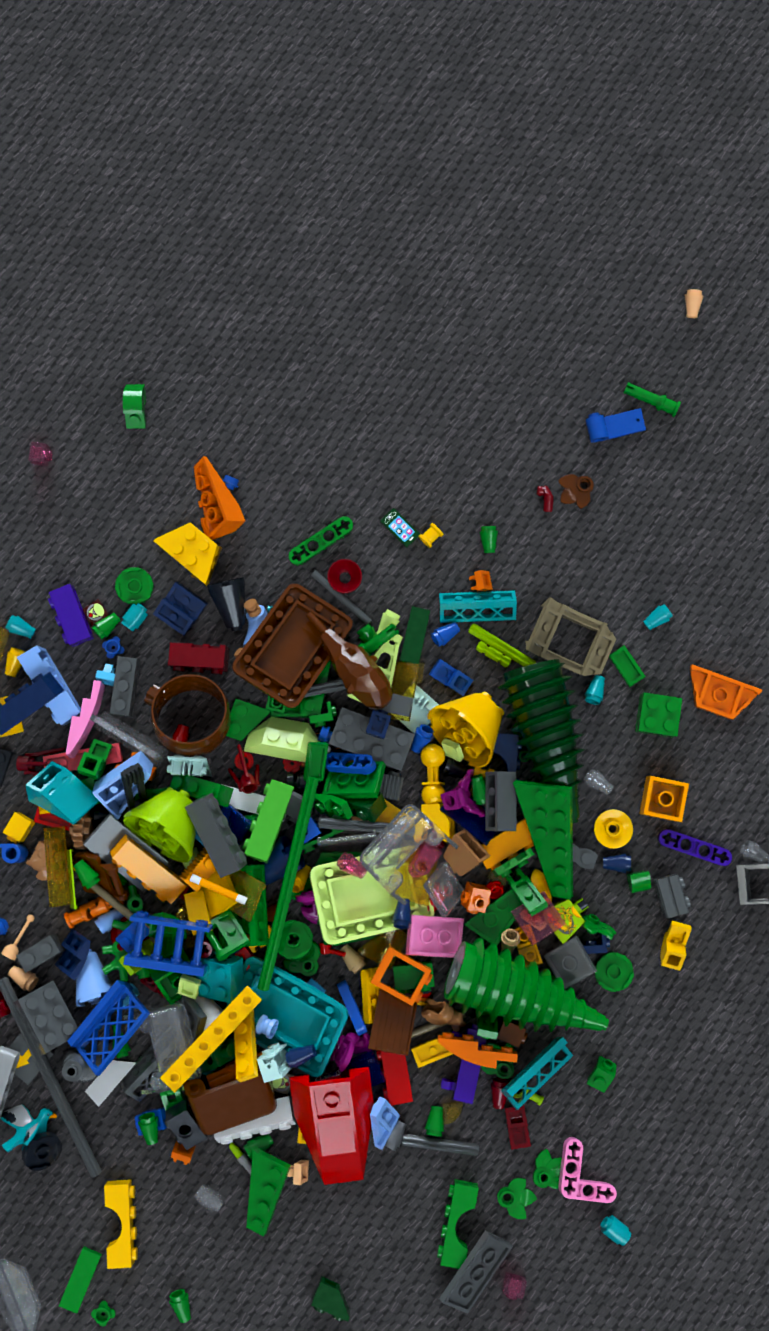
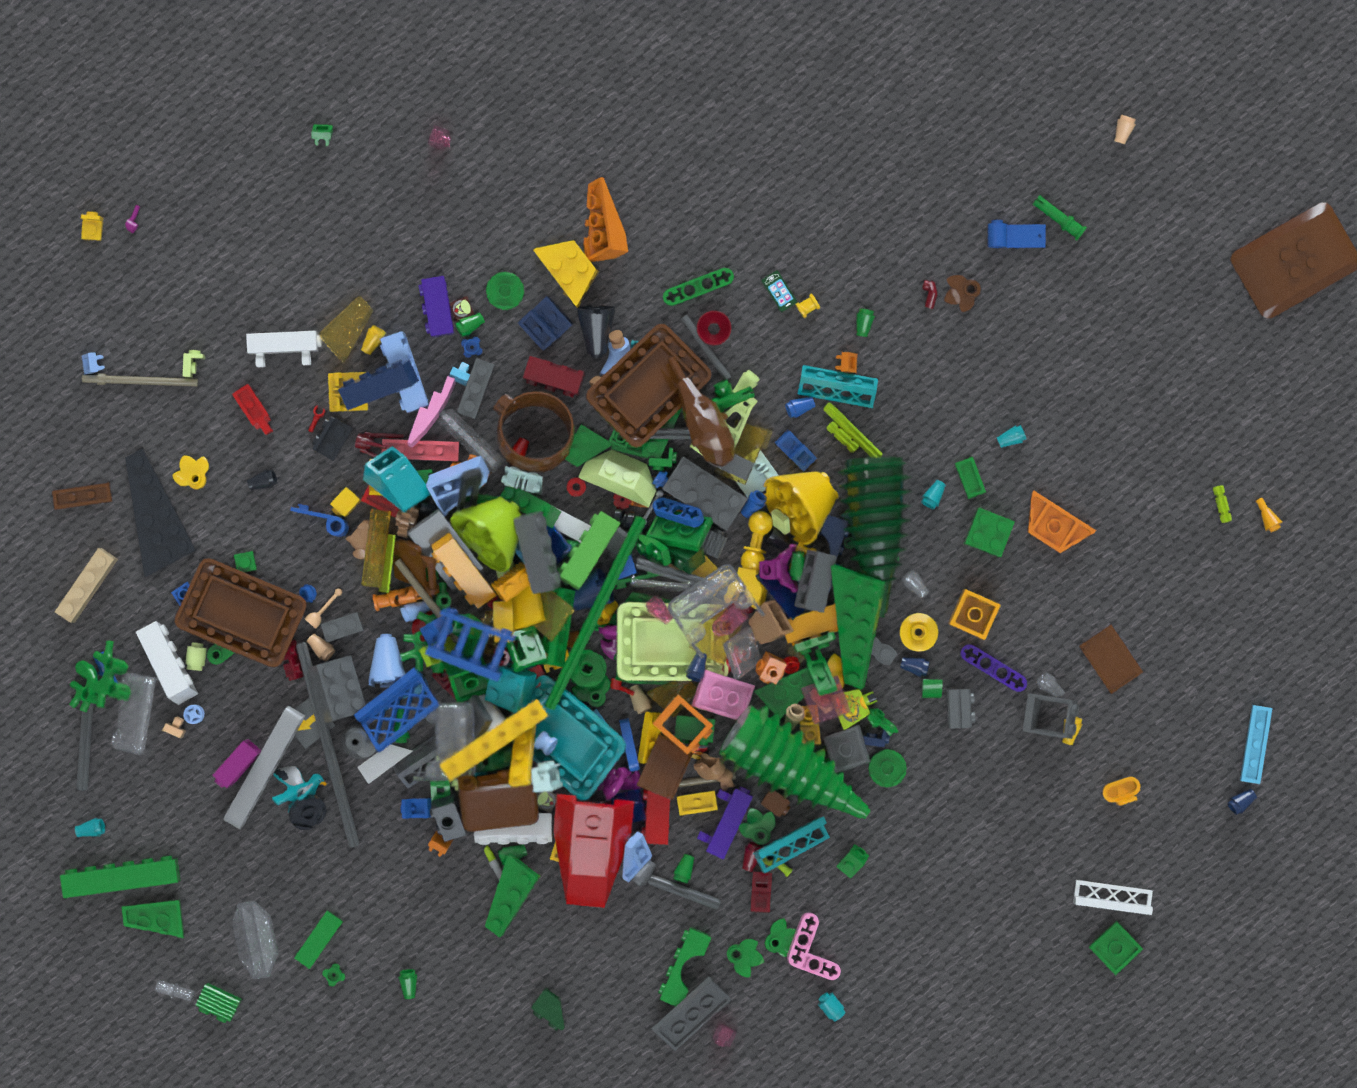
camera: 10 degrees right, 5 degrees up
(20, 627) = (385, 307): teal cone -> none
(75, 955) = (376, 635): dark blue slope -> none
(86, 874) = (404, 562): green cone -> none
(94, 762) = (434, 453): green brick -> none
(119, 1197) = (371, 871): yellow arch -> none
(133, 406) = (543, 110): green brick -> none
(134, 616) = (499, 322): teal brick -> none
(149, 1127) = (413, 813): green cone -> none
(189, 986) = (480, 689): yellowish green tile -> none
(209, 1198) = (455, 891): clear brick -> none
(218, 889) = (529, 604): light orange bar -> none
(230, 482) = (621, 208): blue plate -> none
(248, 782) = (576, 509): dark red plant -> none
(299, 1172) = (546, 886): light nougat tile -> none
(300, 1055) = (569, 777): dark blue cone -> none
(316, 760) = (646, 502): green tile -> none
(378, 724) = (714, 480): dark blue bracket -> none
(415, 635) = (769, 401): dark green tile -> none
(451, 1111) = (702, 863): clear yellow tile -> none
(468, 1050) = (730, 806): orange slope -> none
(485, 1028) = (752, 791): green plate -> none
(547, 625) = (899, 423): dark tan wedge -> none
(673, 946) = (950, 755): yellow brick -> none

